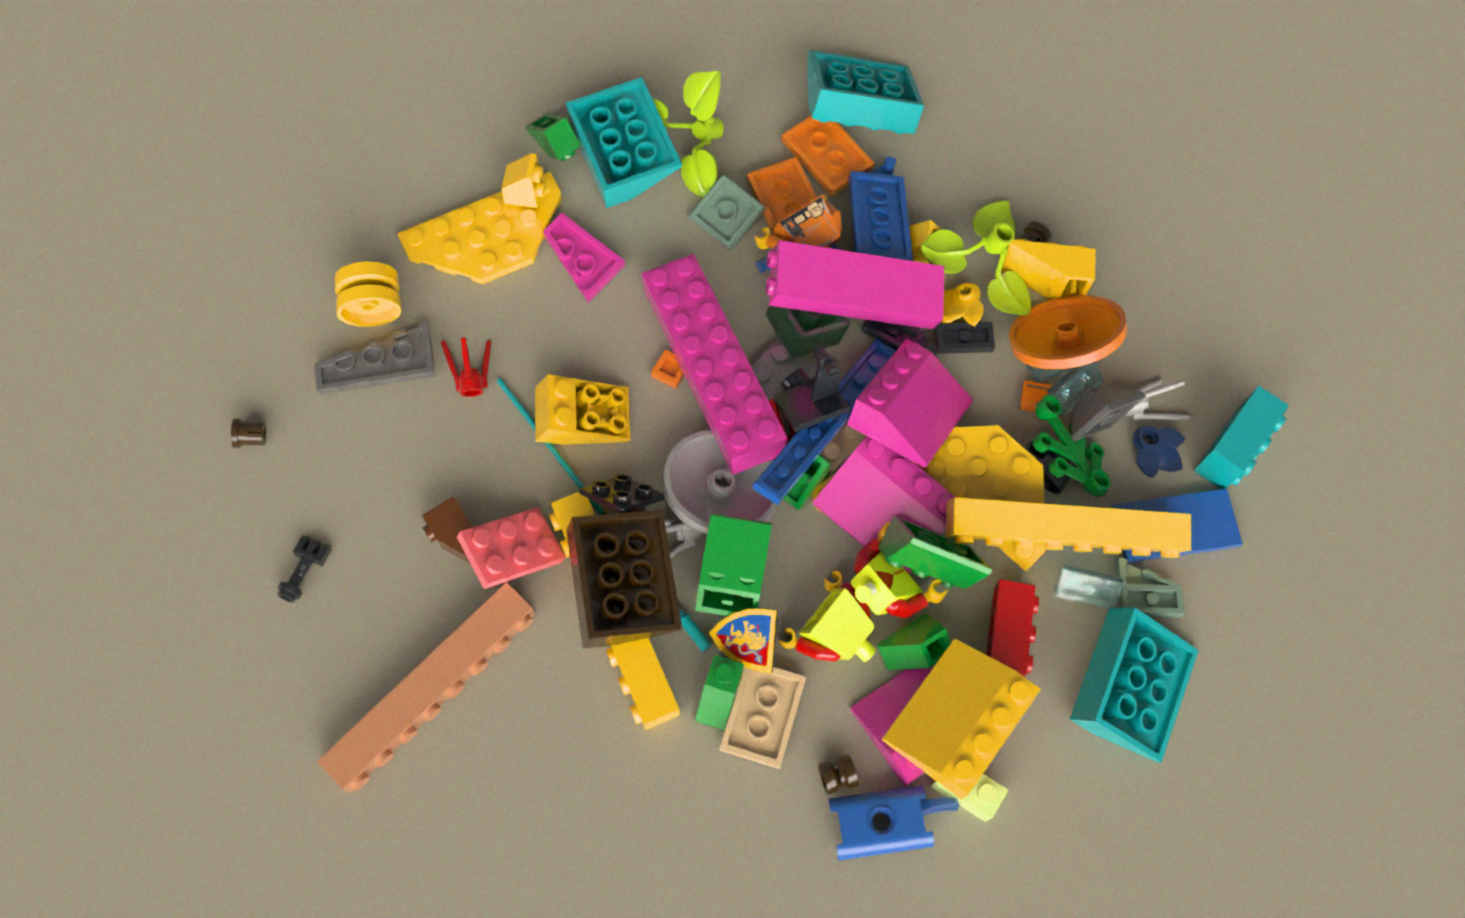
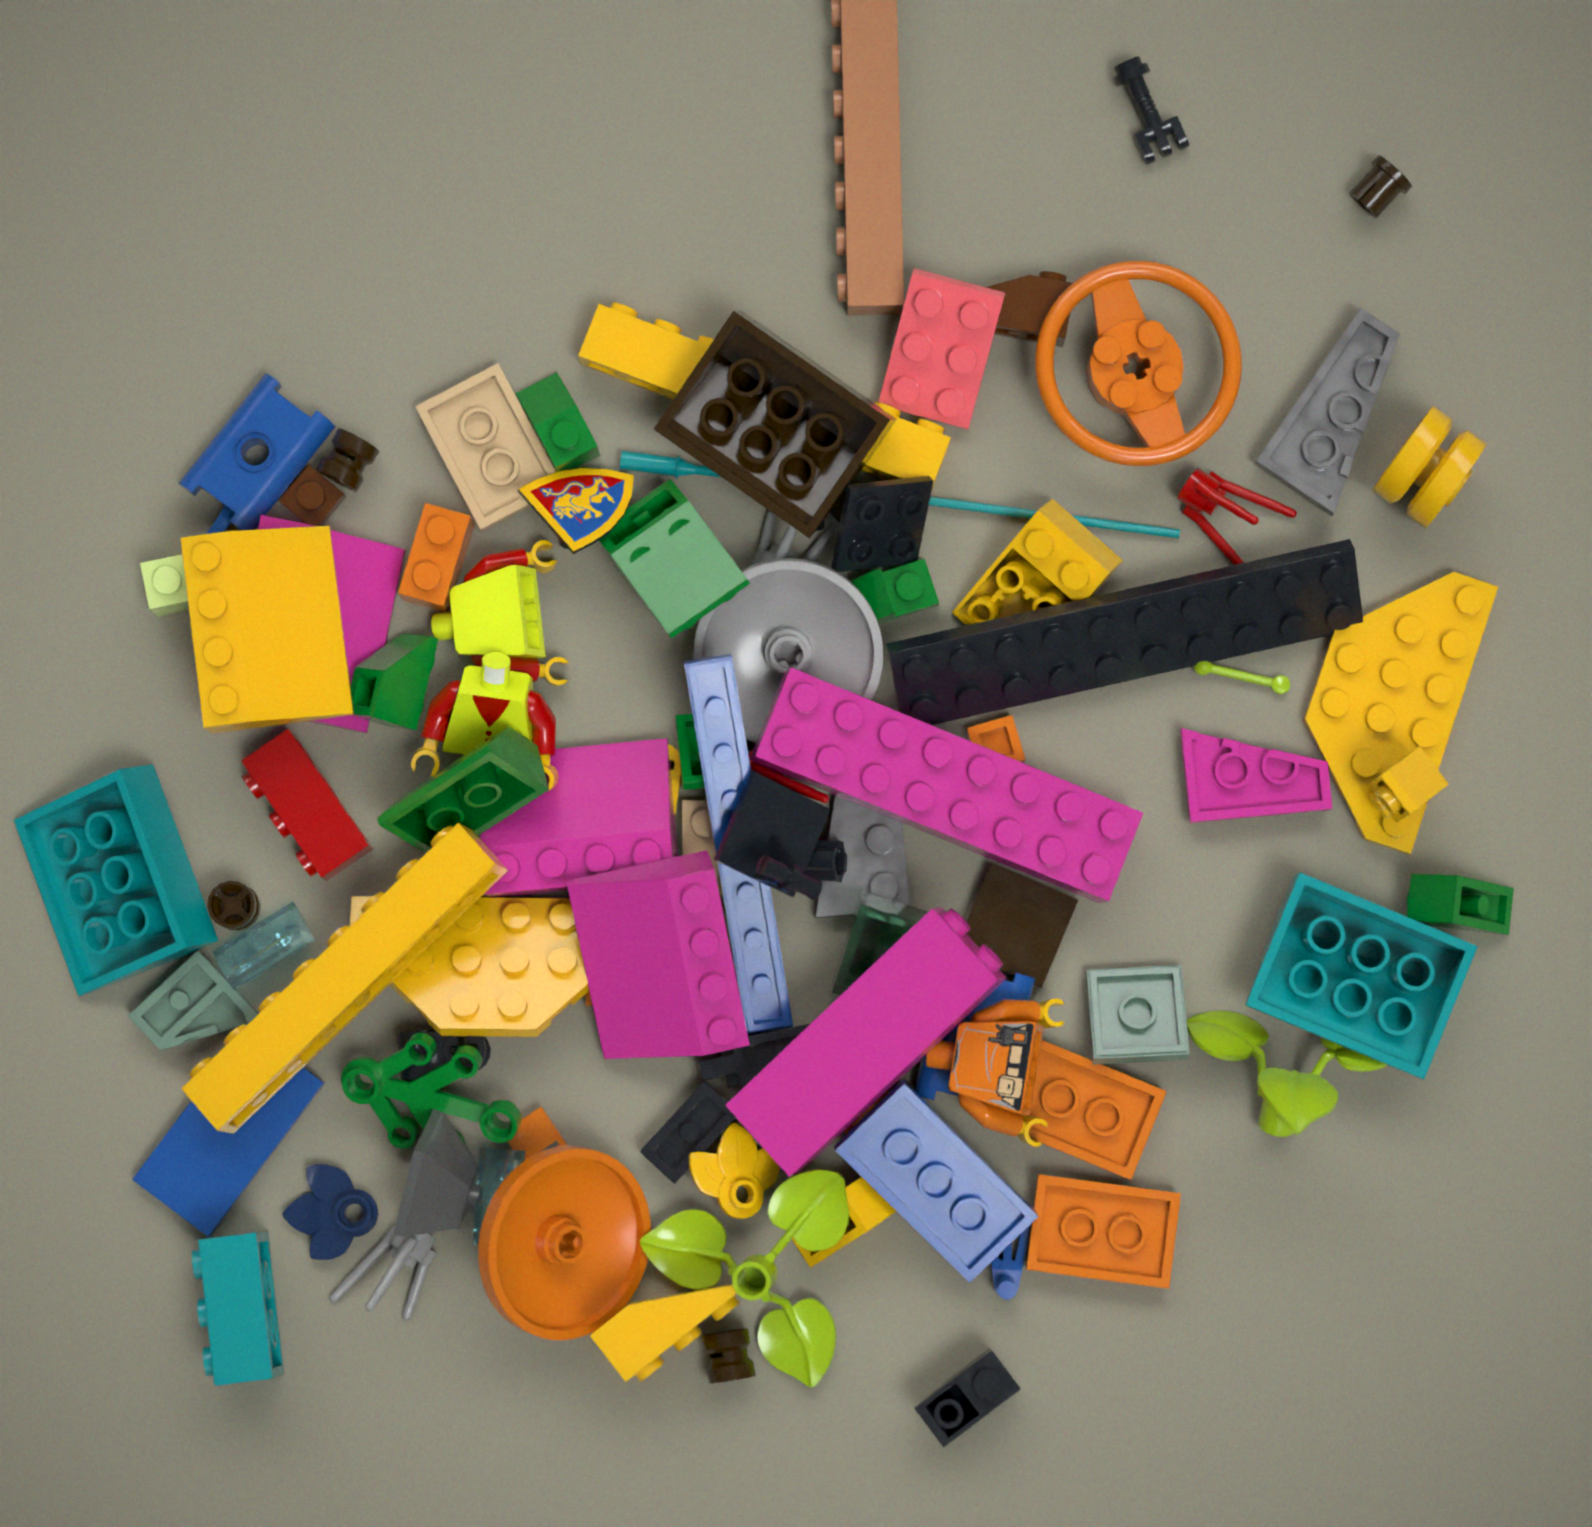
camera: 140 degrees right, 15 degrees up
(445, 441) = (1126, 334): none -> orange piece
(528, 284) = (1278, 684): none -> lime hinge
(570, 353) = (1127, 634): none -> black plate
(644, 468) = (898, 590): none -> green slope
(740, 291) = (1020, 922): none -> dark brown tile
(840, 683) = (436, 557): none -> orange brick
(862, 92) = (1141, 1359): teal slope -> none
(872, 775) = (312, 497): none -> reddish brown plate
(946, 139) = (967, 1397): none -> black slope
(1089, 611) = (226, 903): none -> dark brown wheel

